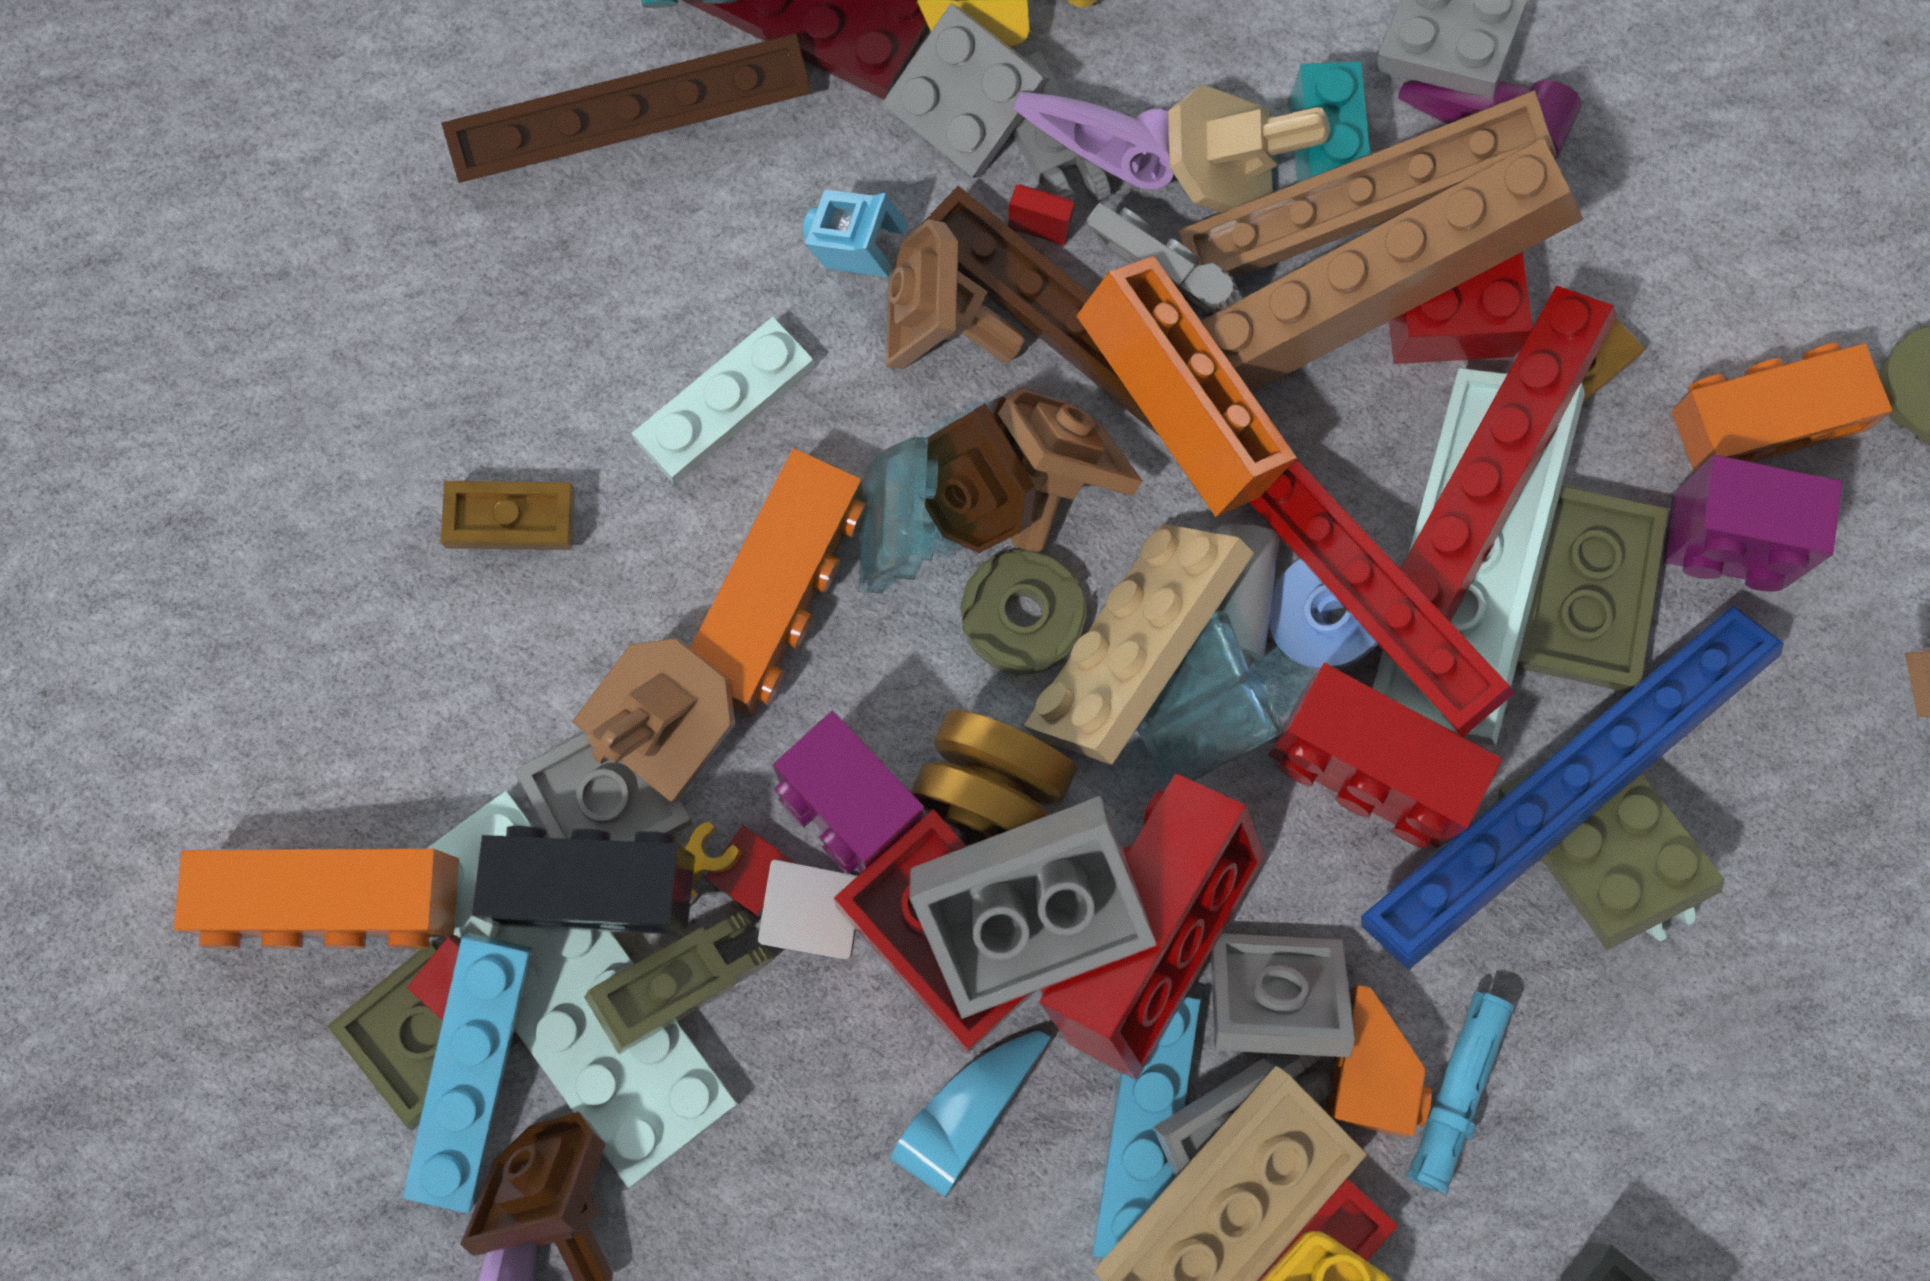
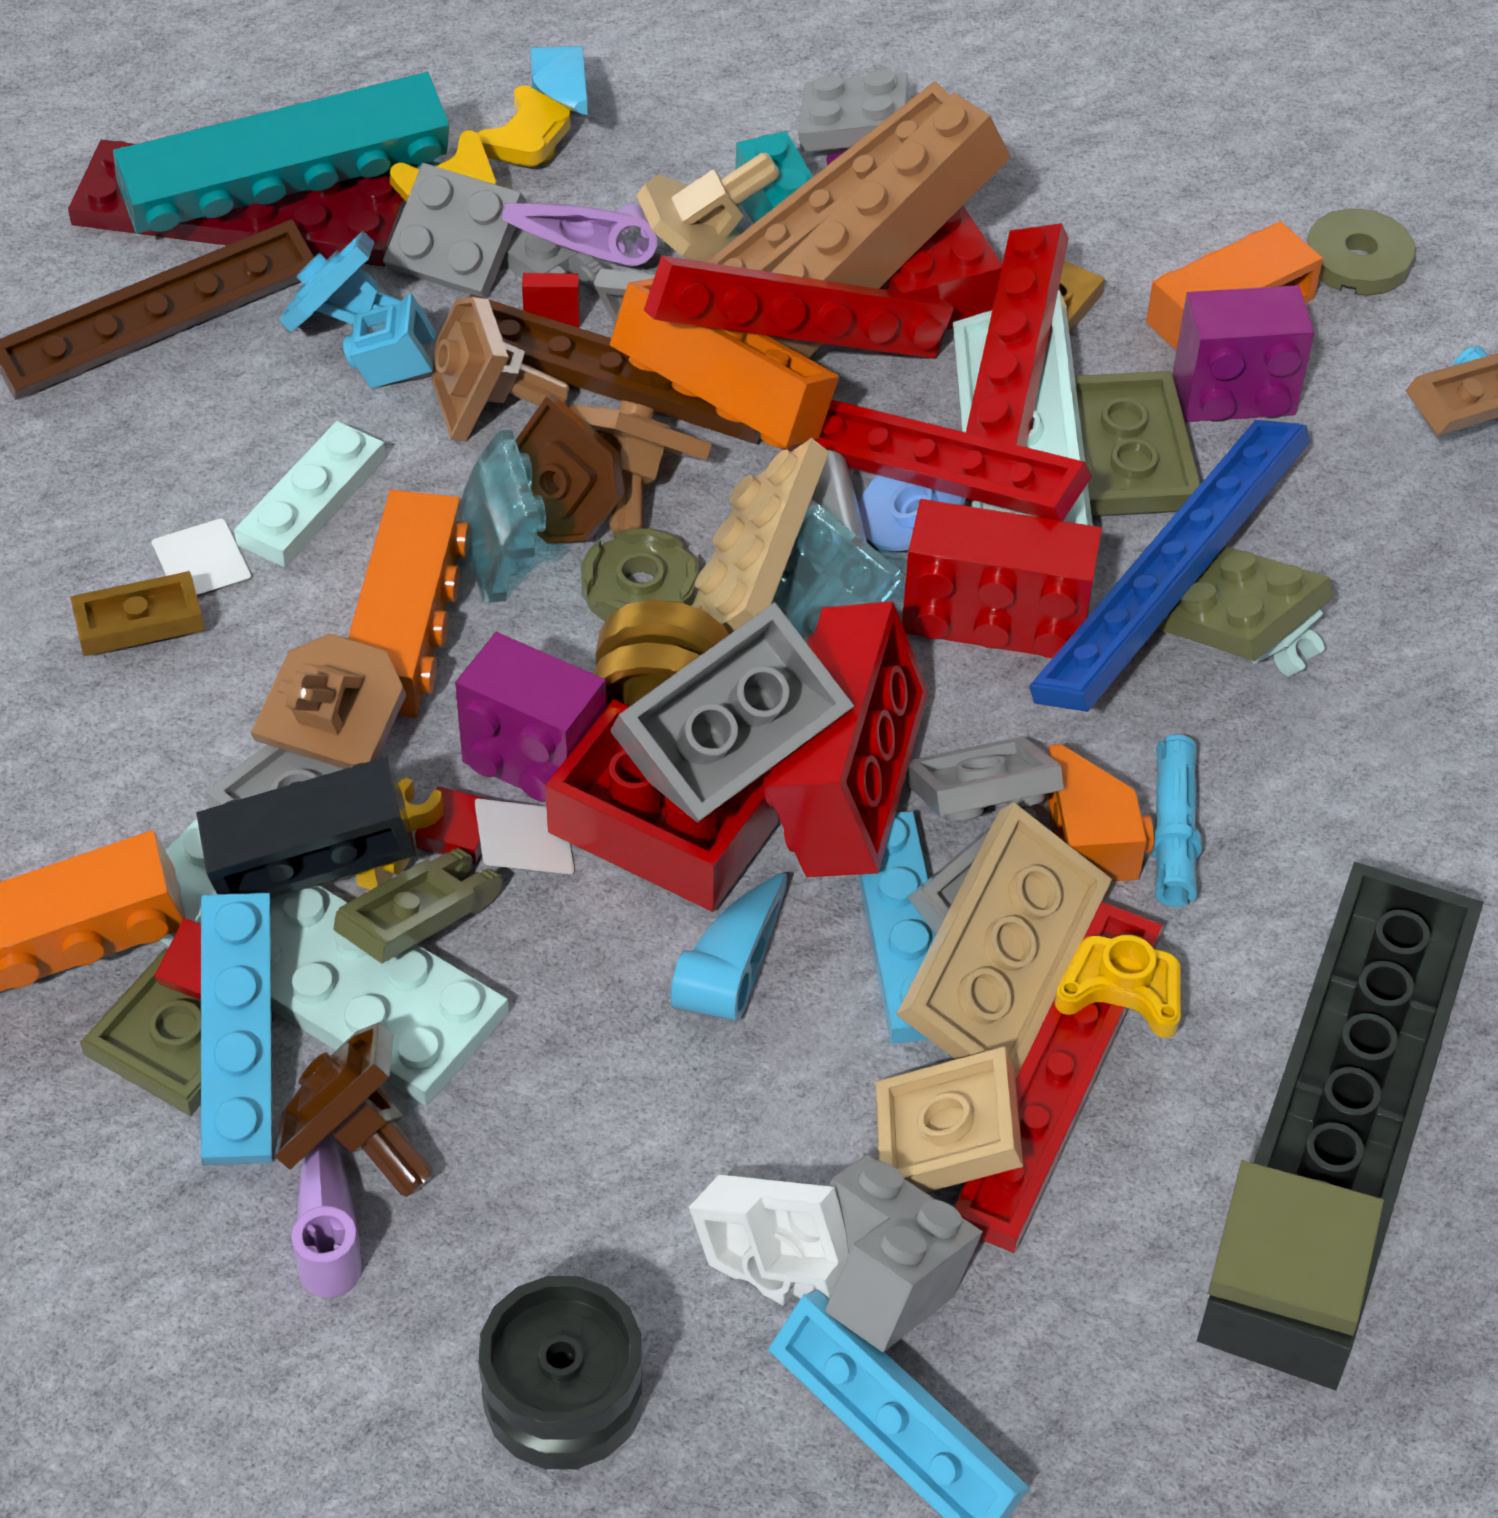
camera: 15 degrees left, 25 degrees down
(594, 448) = (205, 552): none -> white sticker
(823, 147) = (337, 286): none -> medium azure piece
(1280, 350) = (796, 307): none -> red plate

